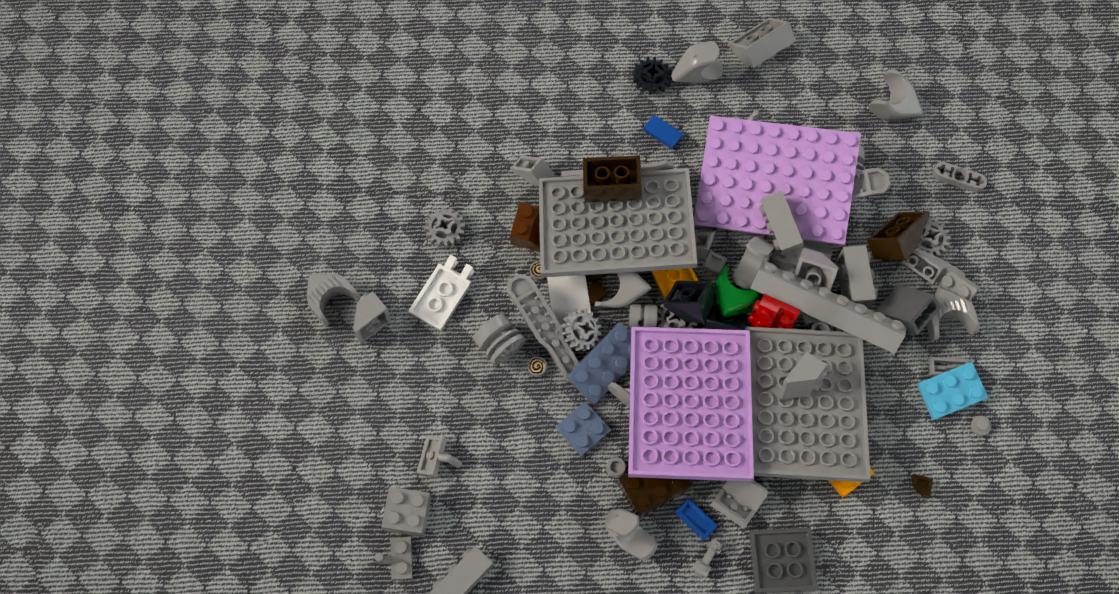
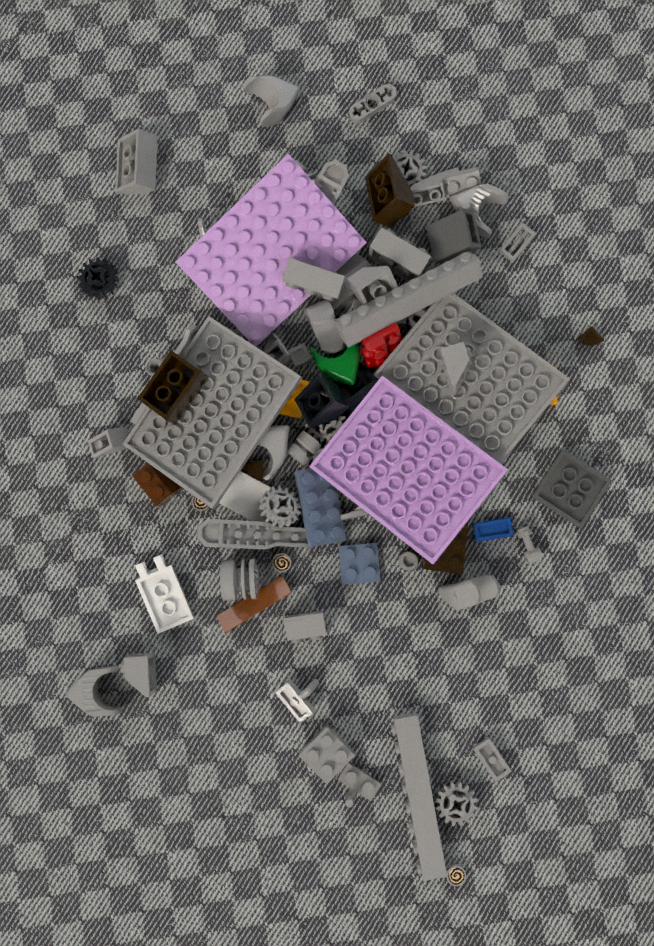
camera: 50 degrees left, 15 degrees up
(438, 233) = (105, 560): light grey gear -> none
(485, 369) = (248, 608): none -> dark orange slope
(499, 418) = (305, 626): none -> light grey slope
(663, 132) = (155, 308): blue tile -> none
(699, 64) = (119, 233): light grey animal -> none
(740, 500) = (509, 489): light grey bracket -> none
(952, 390) = (538, 255): medium azure plate -> none
(981, 425) = (579, 256): light grey plate -> none

